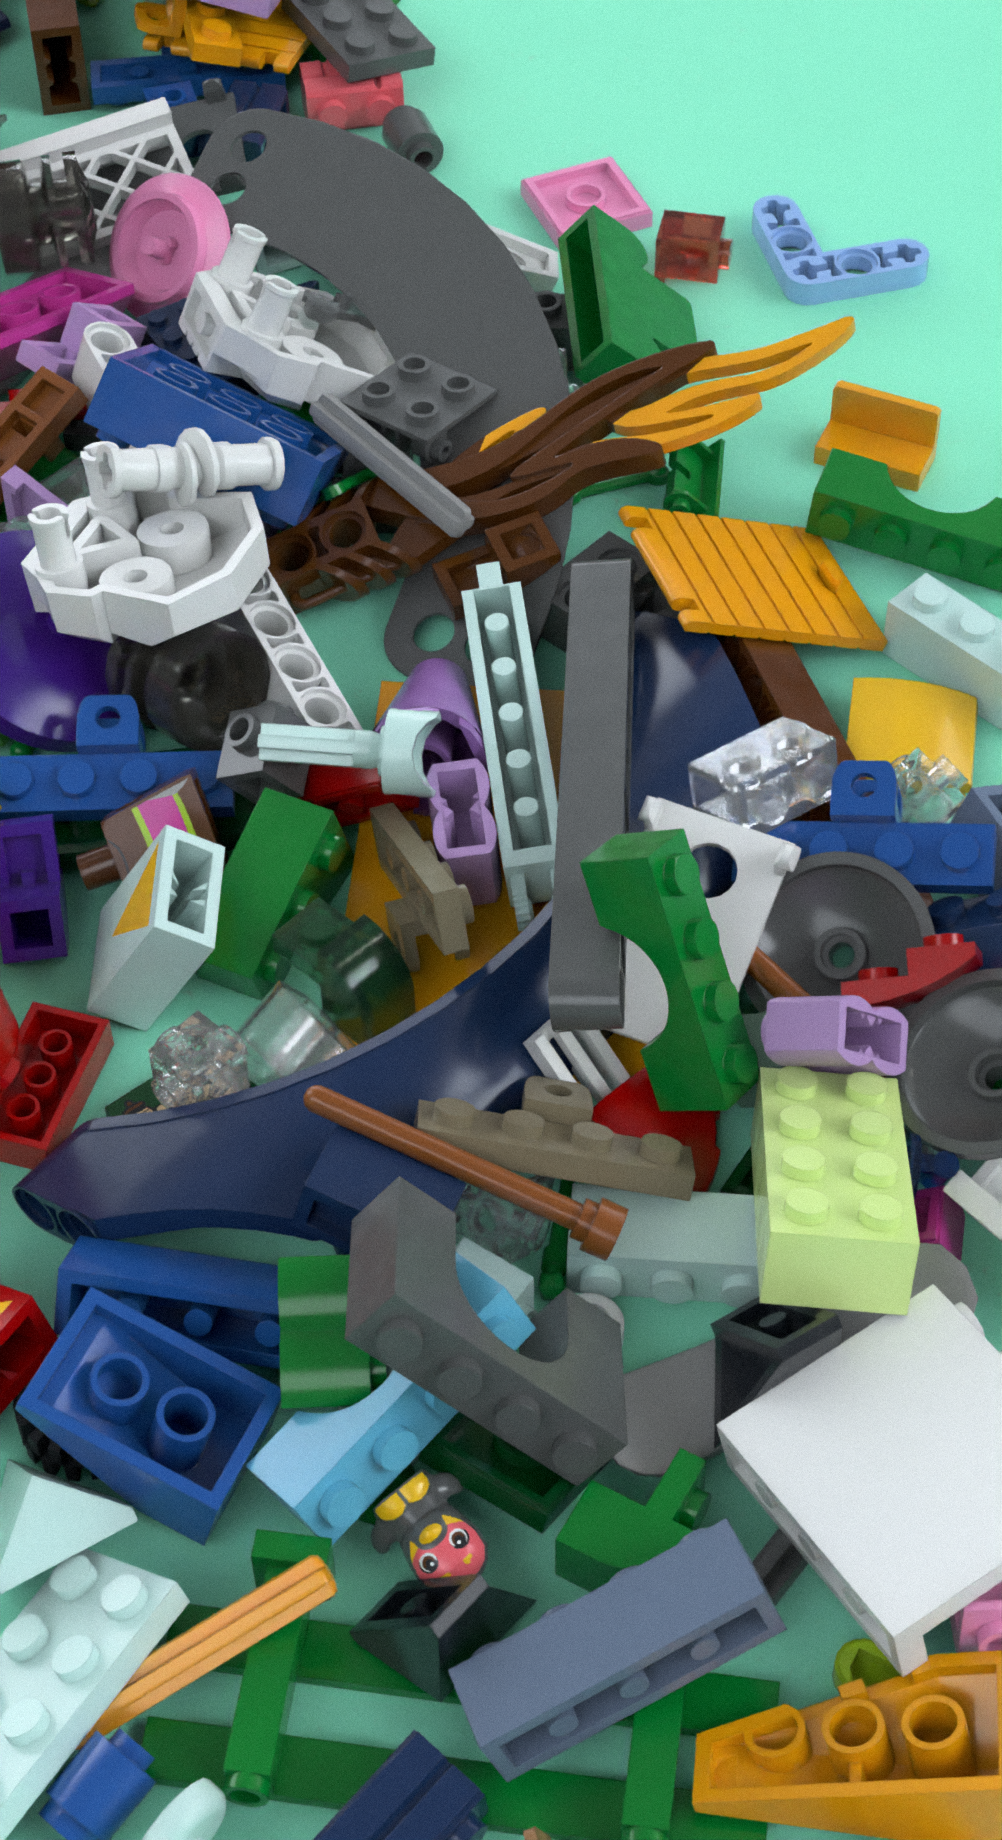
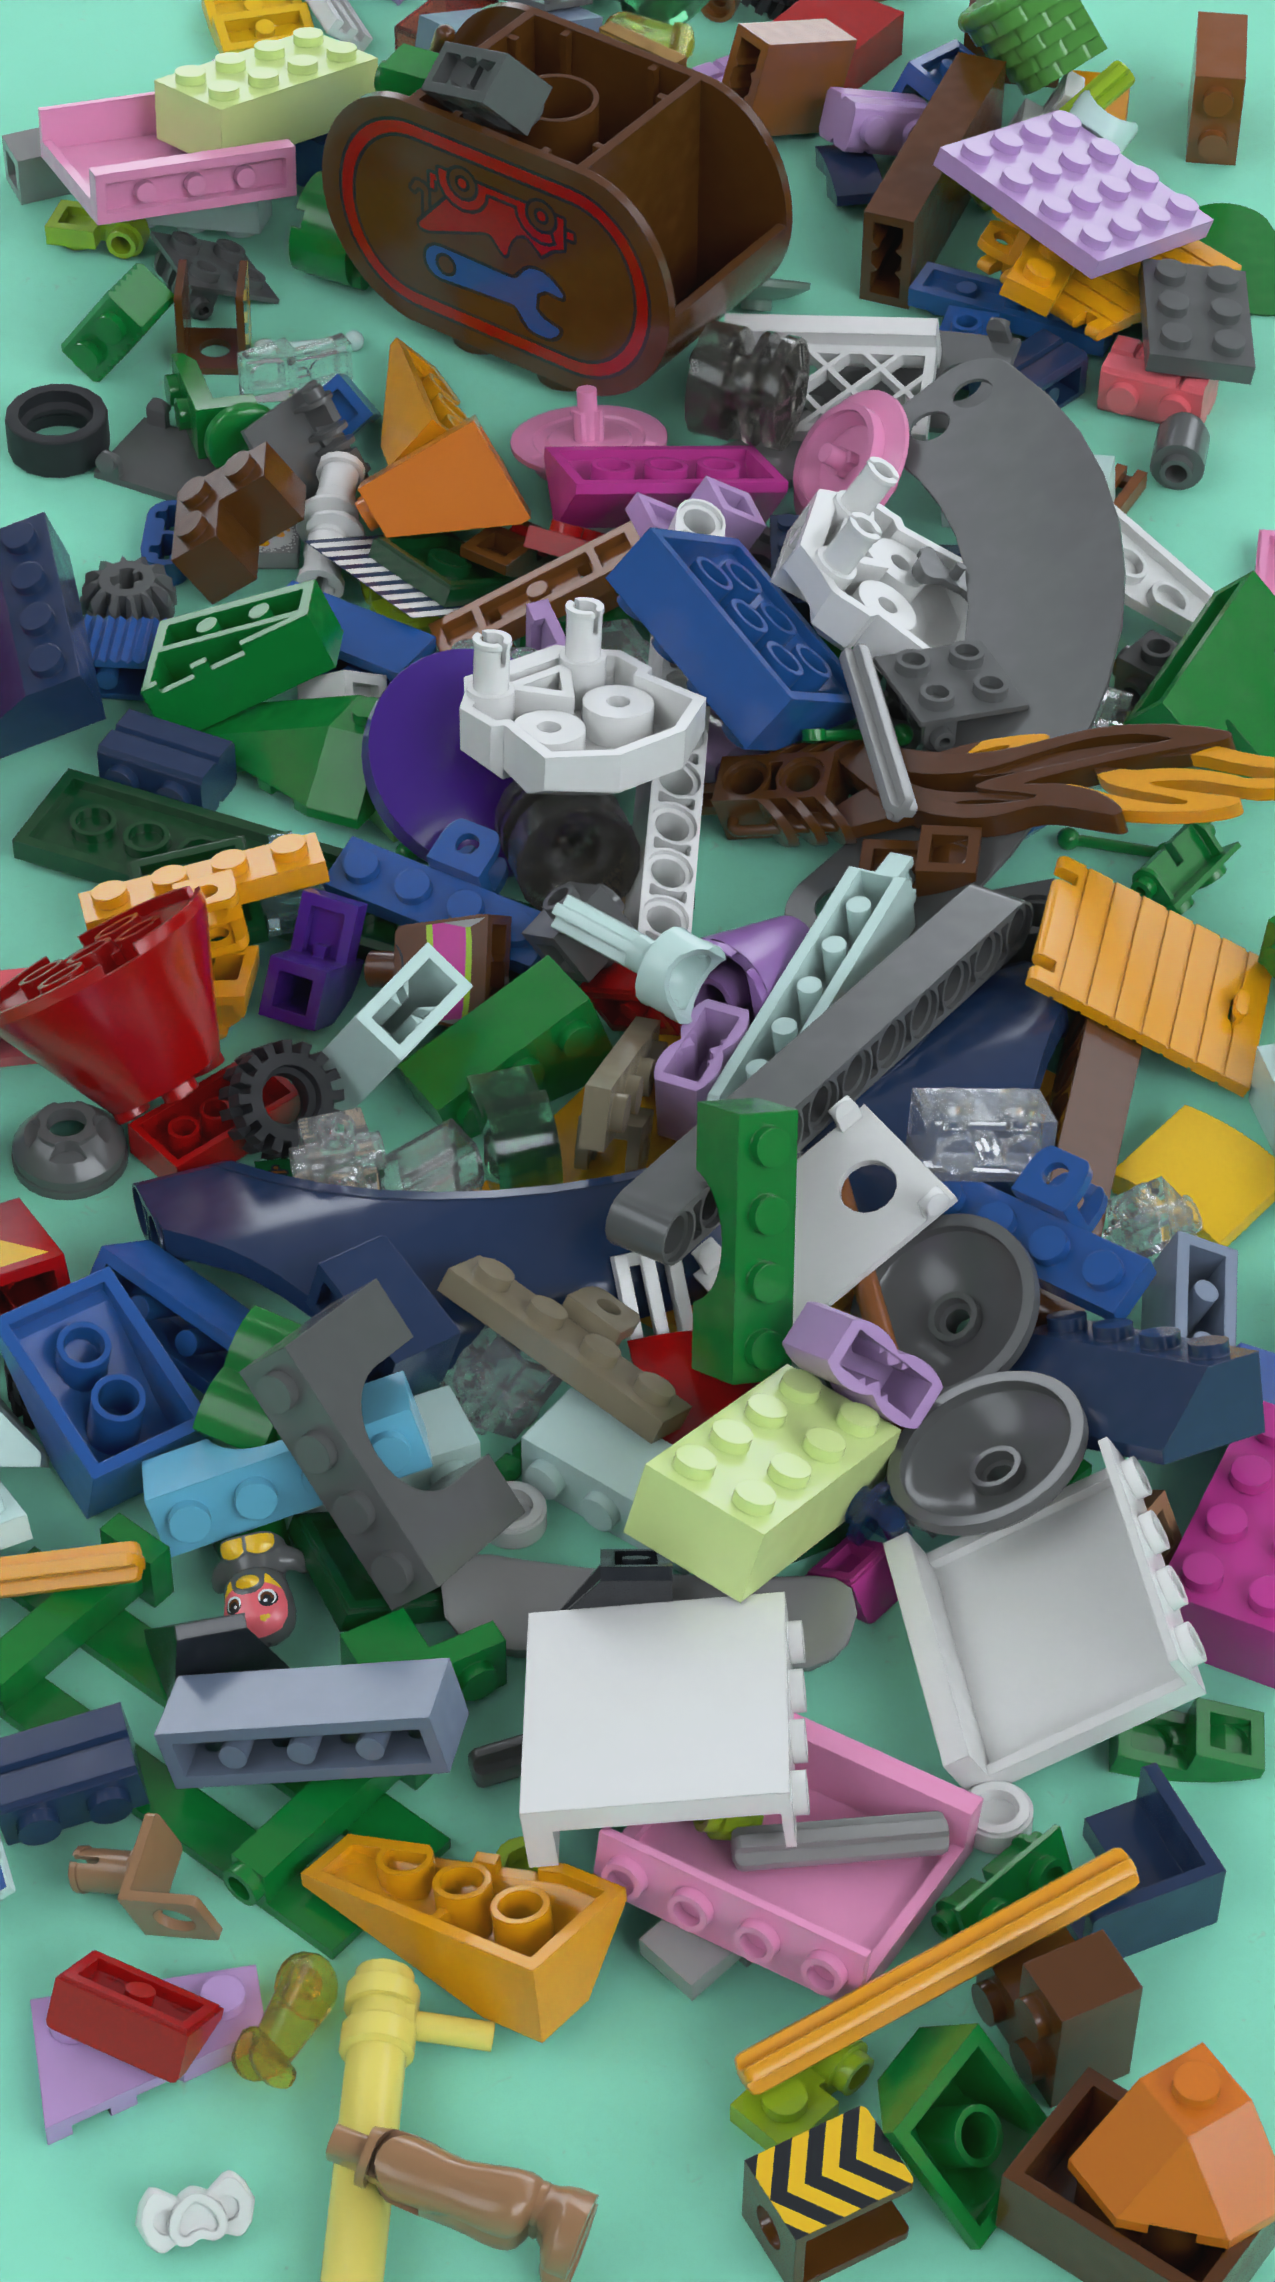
camera: 30 degrees right, 5 degrees down
(76, 1046) = (246, 1098): none -> black tyre
(189, 466) = (657, 652): white piece -> none
(590, 1223) = (549, 1418): dark orange piece -> none
(929, 968) = (978, 1353): red slope -> none

